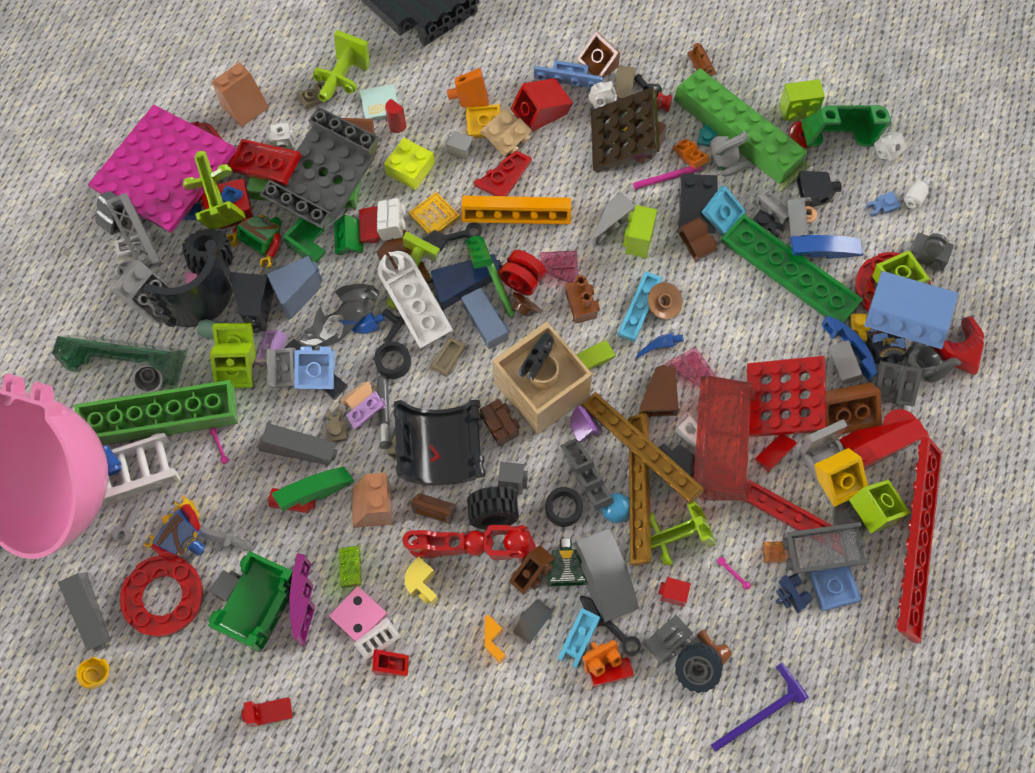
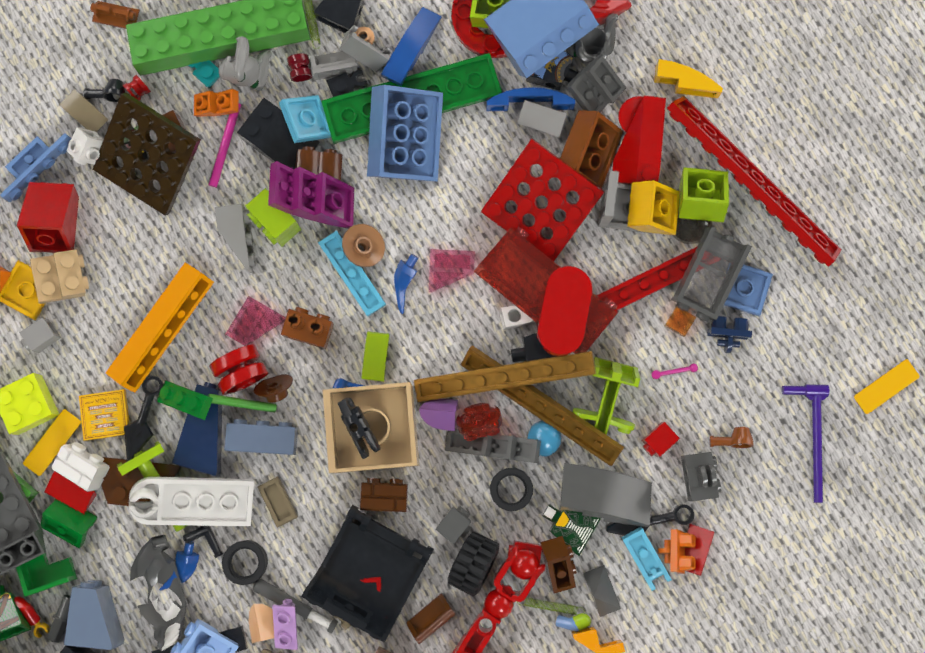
camera: 60 degrees left, 15 degrees up
(405, 195) = (51, 442): none -> yellow piece
(496, 581) = (553, 609): none -> lime piece
(496, 613) = (574, 623): none -> arm
(505, 176) = (110, 314): red wing -> none
(597, 451) = (489, 422): none -> clear red plate
(599, 56) = (34, 117): dark orange slope -> none
(661, 394) = (458, 317): reddish brown slope -> none
(673, 243) = (311, 195): none -> magenta slope
(699, 655) = (745, 468): black wheel -> none
(719, 453) = (564, 310): none -> red tile
(755, 187) = (299, 67): none -> dark red wheel
(763, 278) = (404, 133): none -> medium blue slope
(775, 452) = (586, 249): red slope -> none
(842, 747) = (886, 386): none -> yellow piece
(856, 323) = (509, 77): yellow plate -> none
(954, 444) = (686, 79): none -> yellow slope

